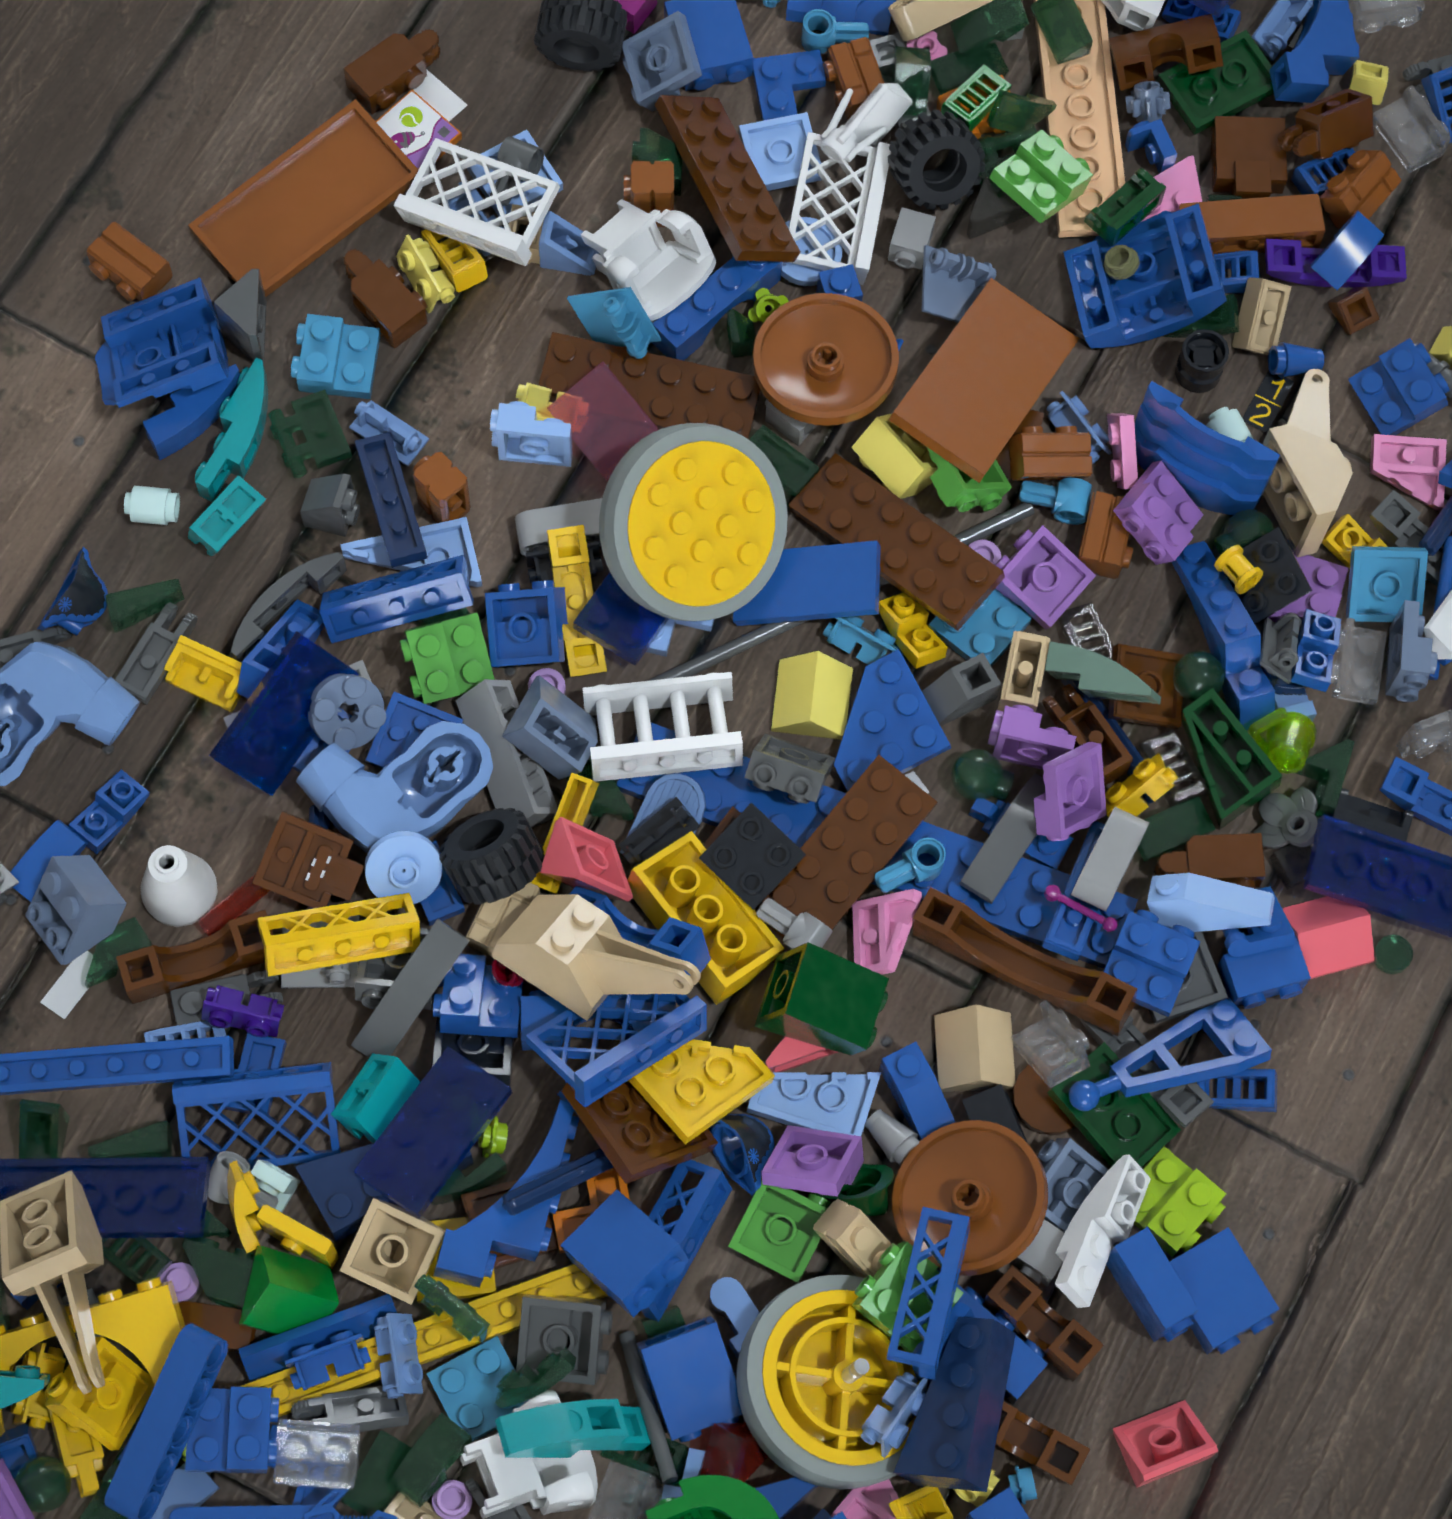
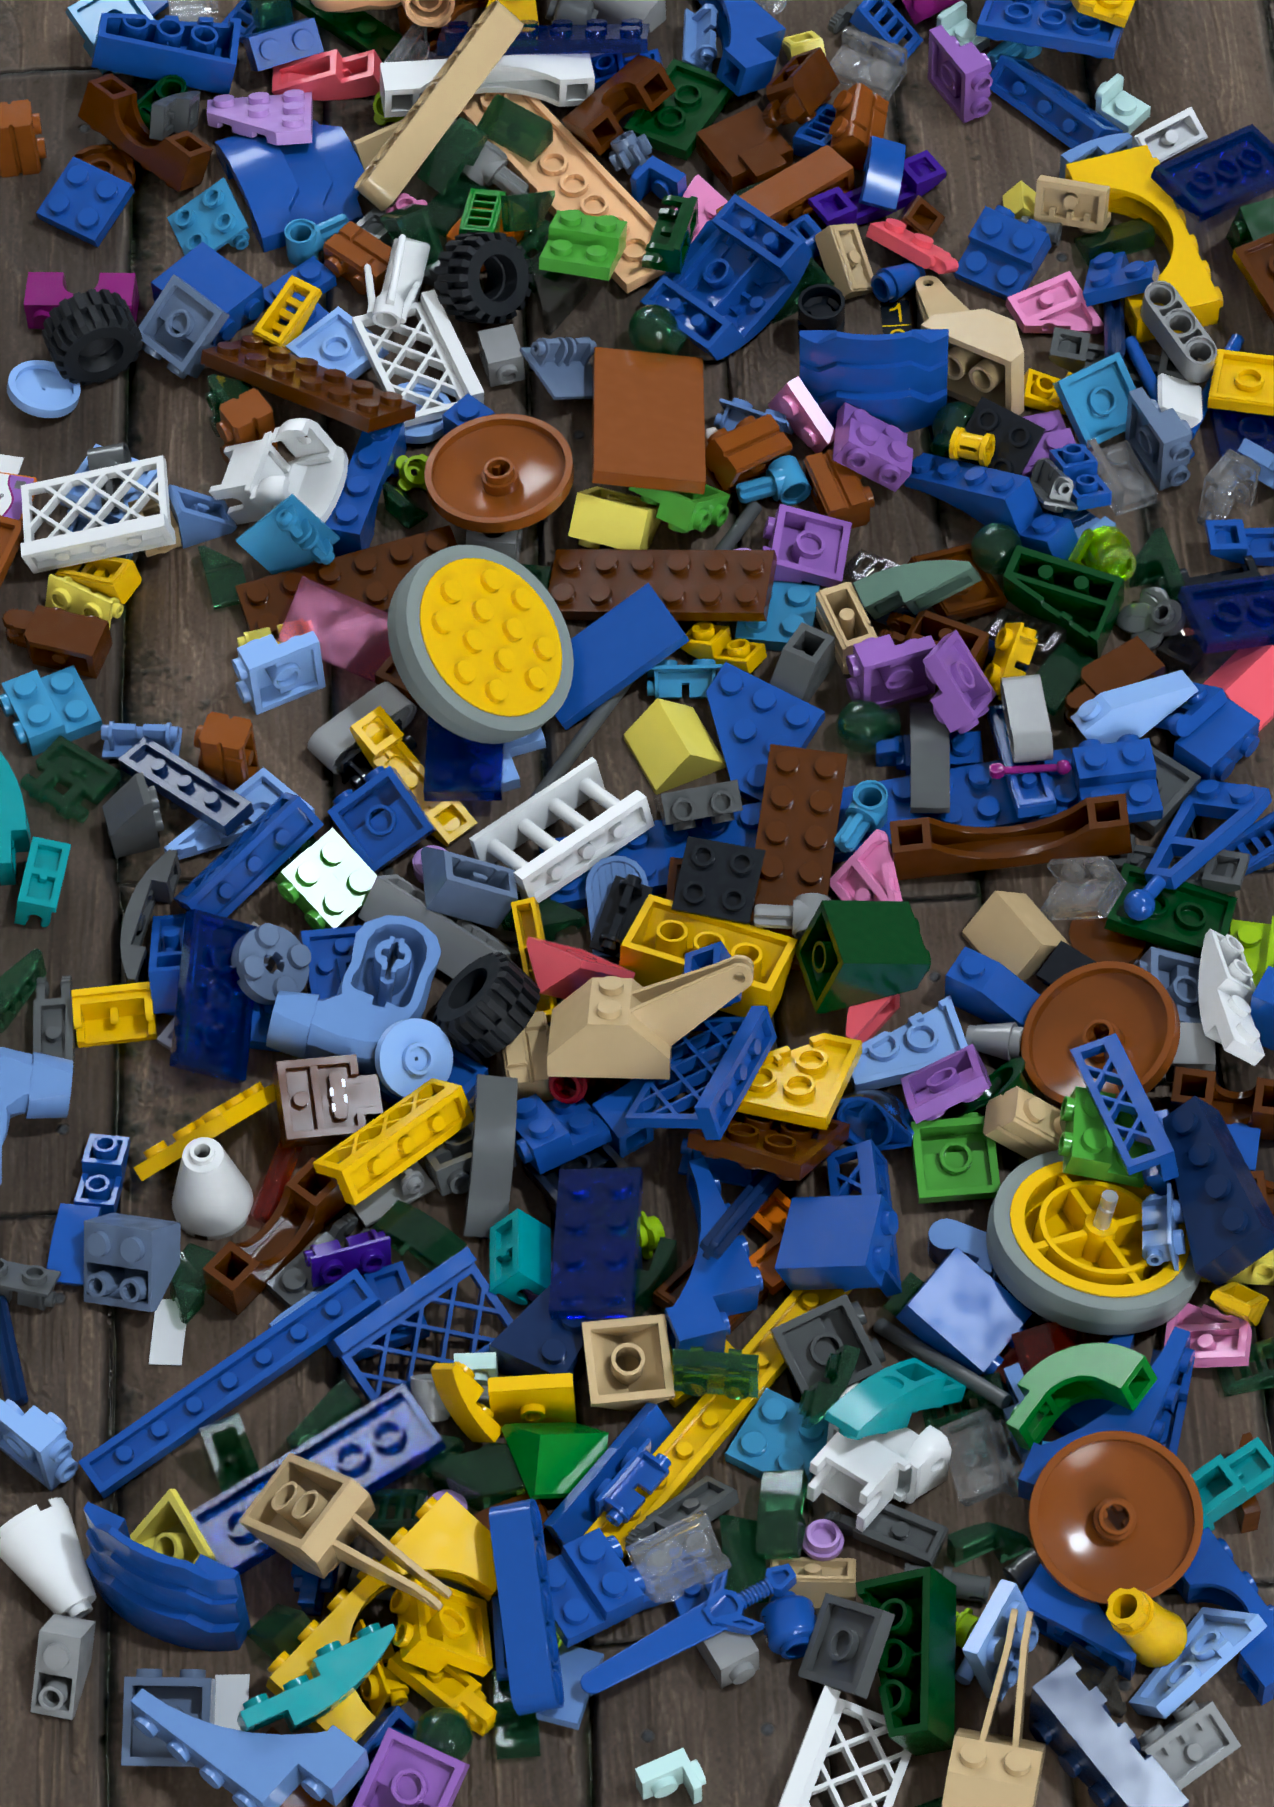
camera: 25 degrees left, 15 degrees down
(207, 831) = (208, 1125): none -> yellow plate
(313, 1024) = (419, 1234): none -> clear green slope
(398, 1337) = (704, 1453): medium blue hinge -> none
(513, 53) = (41, 390): none -> light blue piece
(549, 315) = (221, 576): none -> clear green slope
(742, 93) = (270, 321): none -> yellow slope
(1021, 51) = (492, 169): none -> light grey axle
(1054, 291) = (655, 330): none -> clear green piece
(1121, 262) = (698, 277): olive plate -> none
(1327, 335) = (914, 247): none -> coral hinge

